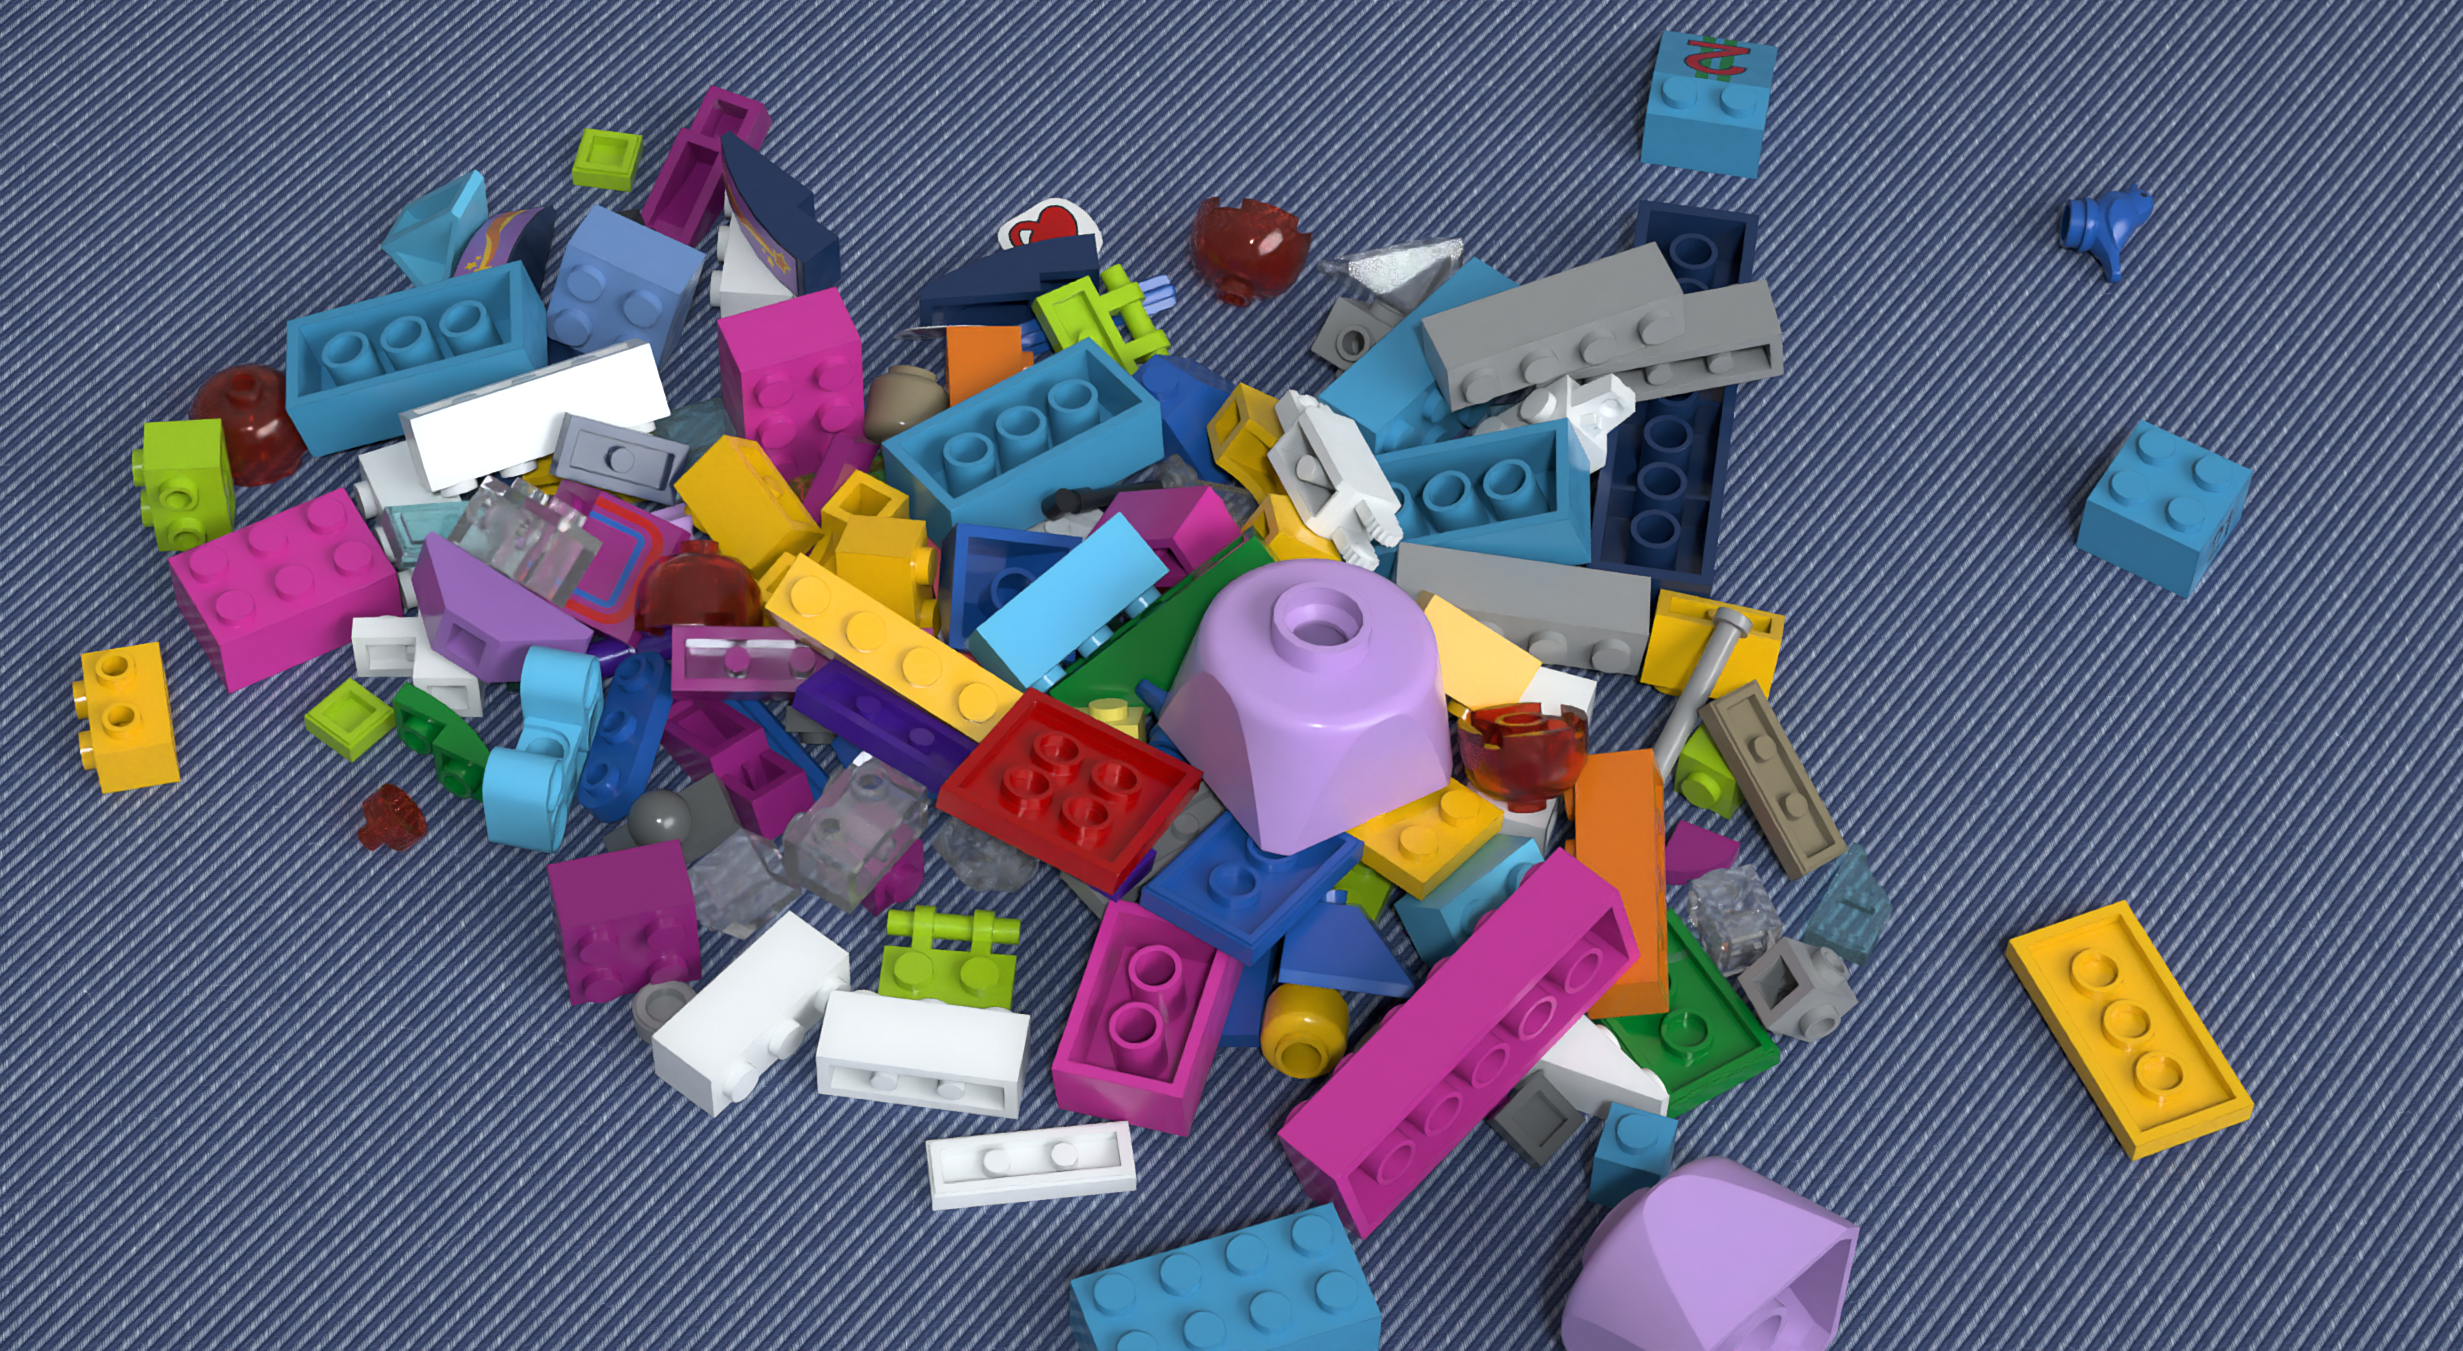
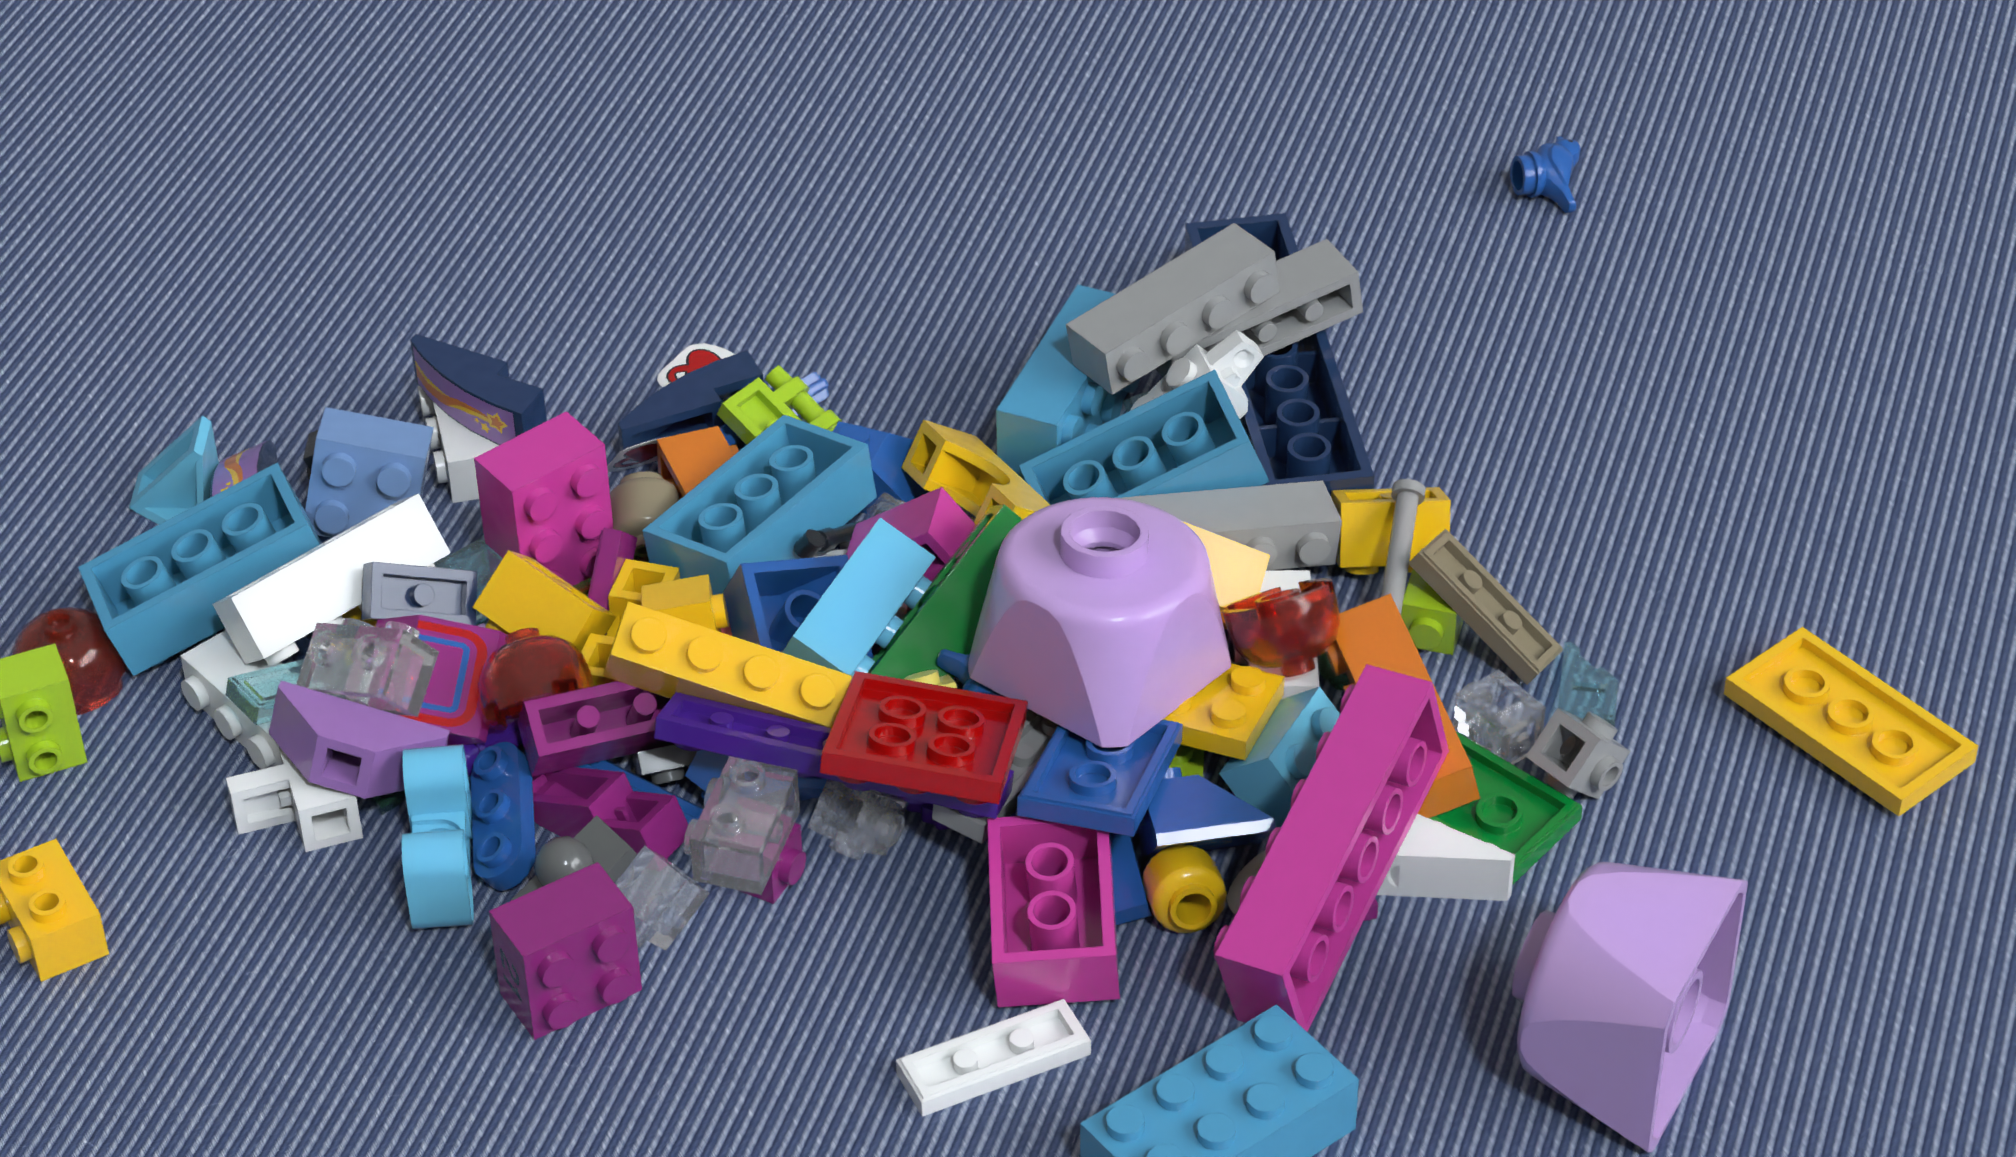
camera: 15 degrees left, 10 degrees down
(284, 588) = (149, 776): dark pink brick -> none
(350, 720) = (246, 866): lime tile -> none
(391, 820) = (317, 931): clear red tile -> none
(435, 729) = (332, 851): green slope -> none
(607, 160) = (301, 399): lime tile -> none
(657, 1005) = (623, 1022): light grey tile -> none
(691, 182) = (387, 373): magenta slope -> none
(750, 1015) = (703, 1000): white brick -> none
(923, 1053) = (867, 991): white brick -> none
(950, 976) = (861, 935): lime plate -> none
(1247, 250) = (877, 334): clear red cylinder -> none
(1334, 479) = (1034, 459): white hinge -> none
(1353, 330) = (993, 373): light grey brick -> none
(1398, 273) = (1007, 330): clear slope -> none
(1536, 1120) = (1408, 908): dark grey plate -> none
(1631, 1154) = (1501, 913): dark azure brick -> none
(1697, 851) = (1449, 677): magenta tile -> none
(1708, 104) = (1200, 162): dark azure slope -> none
(2164, 508) = (1693, 349): dark azure brick -> none

